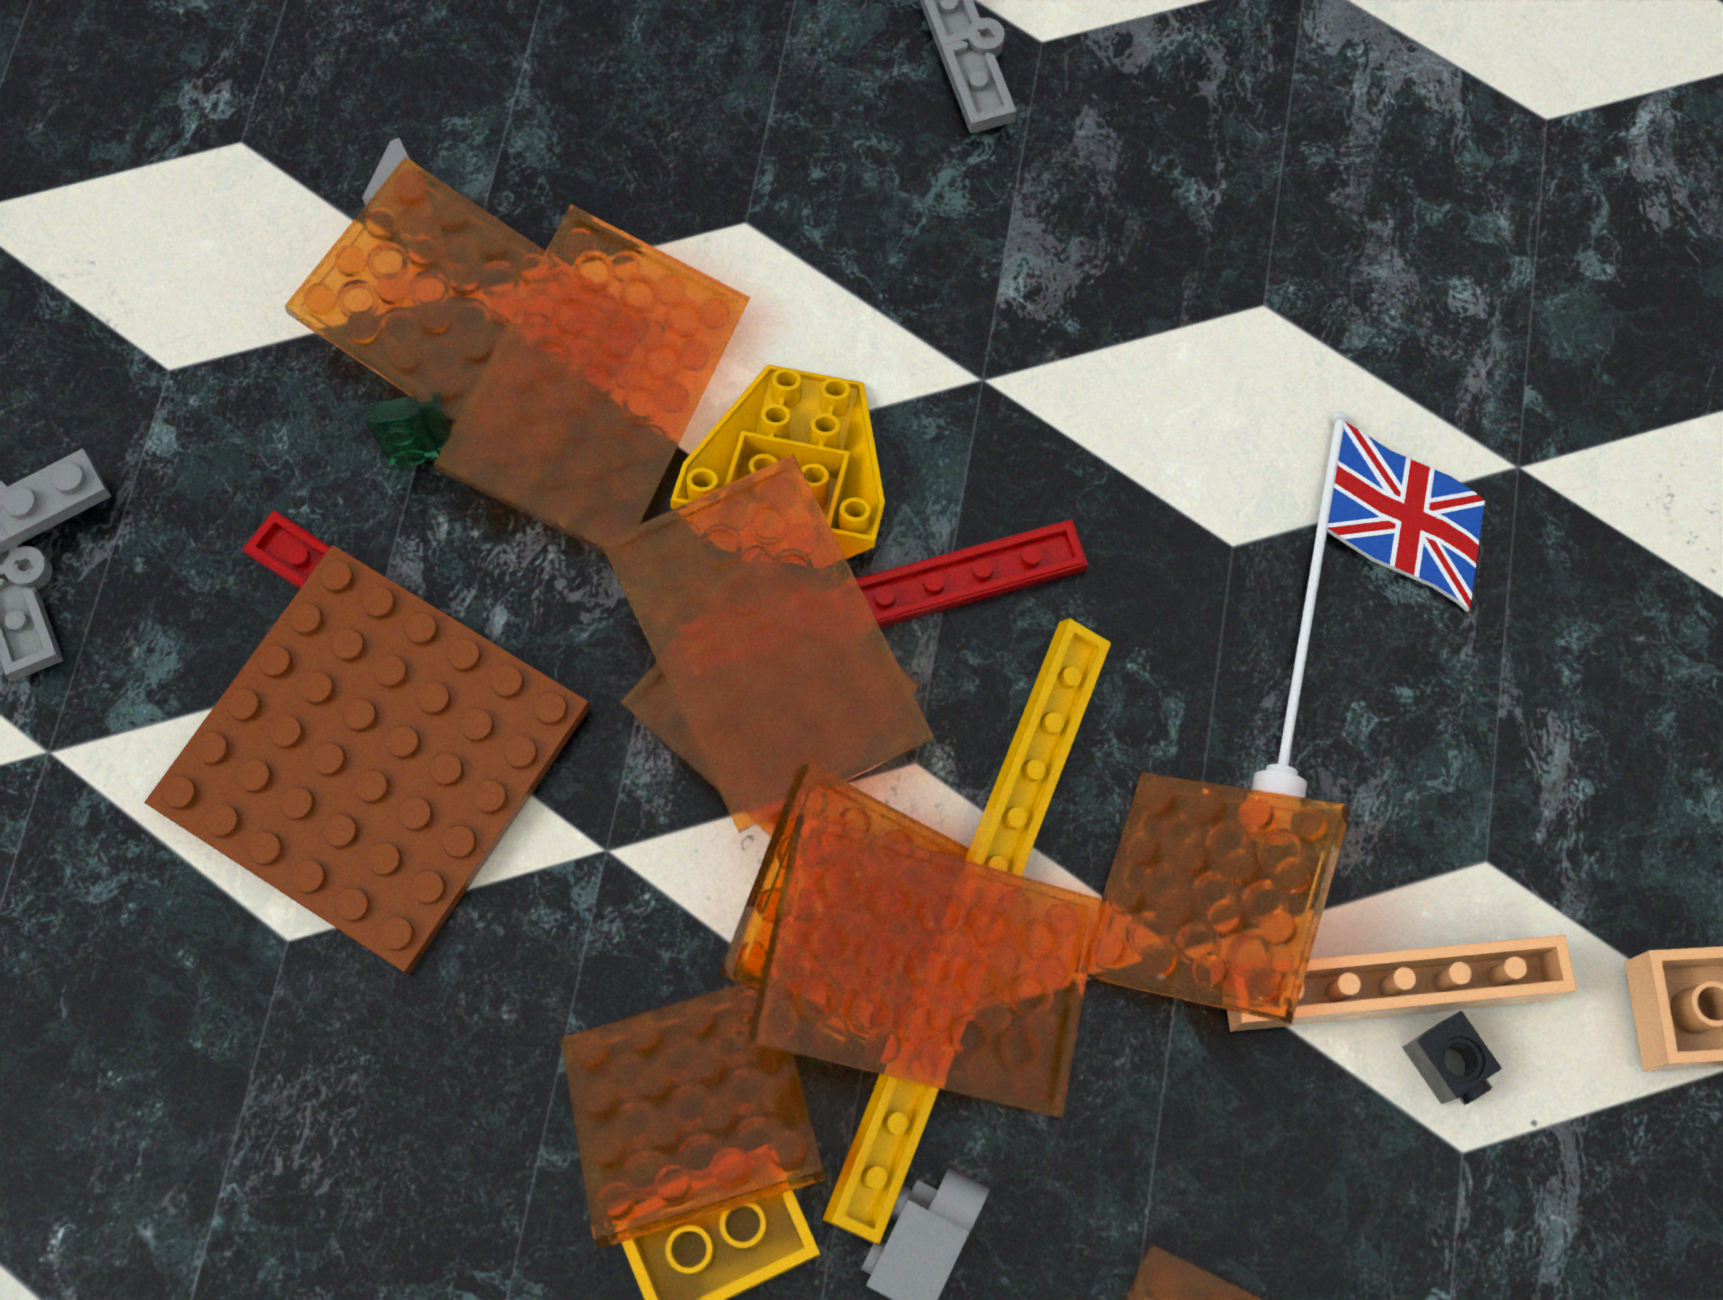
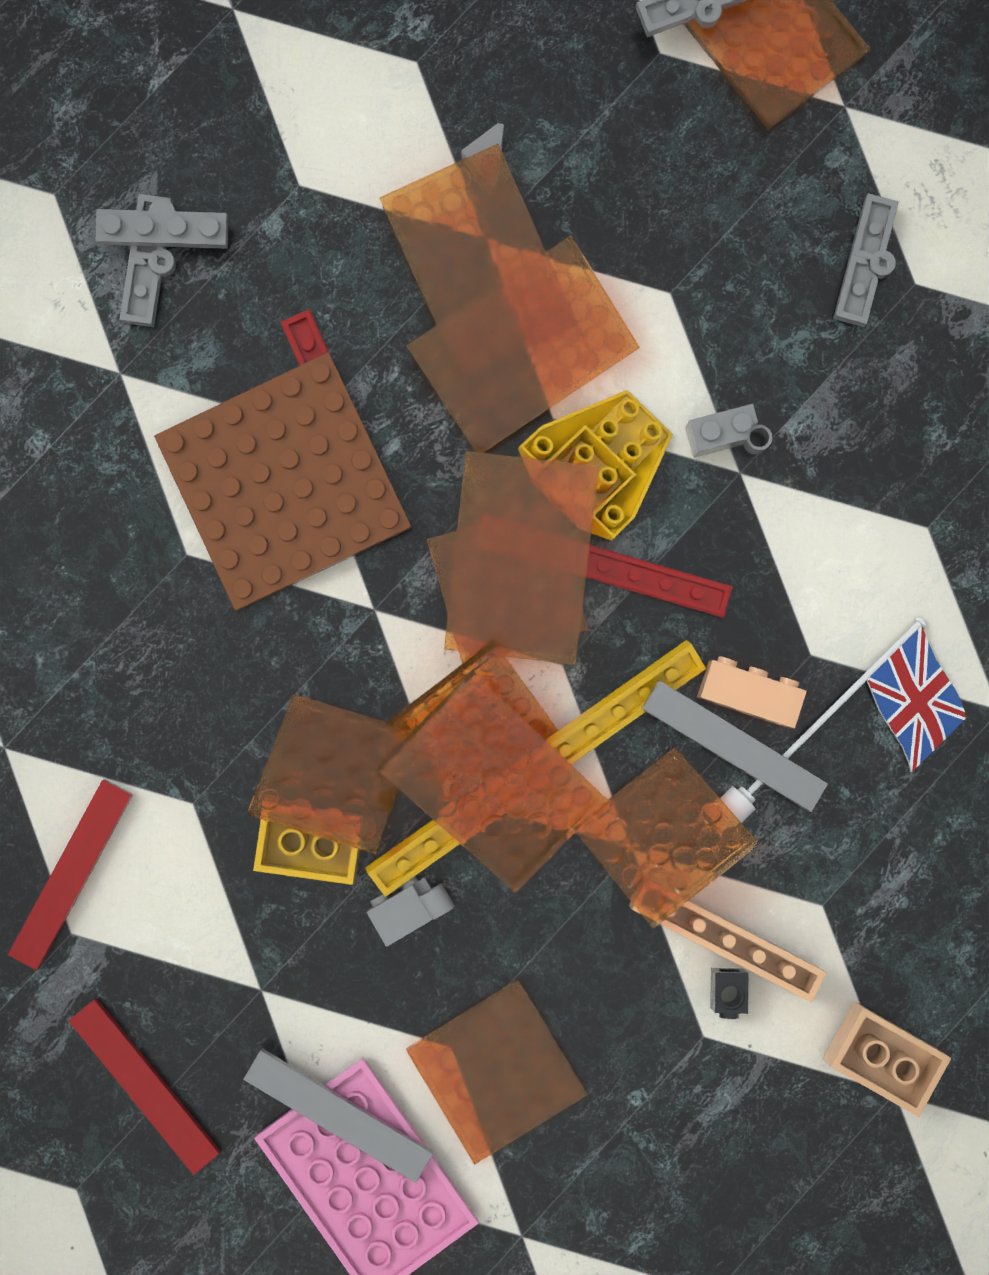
camera: 30 degrees right, 15 degrees up
(409, 428) = (406, 313): clear green plate -> none
(931, 333) = (726, 431): none -> light grey hinge
(1193, 636) = (752, 692): none -> light nougat brick
(1220, 715) = (734, 746): none -> light grey tile

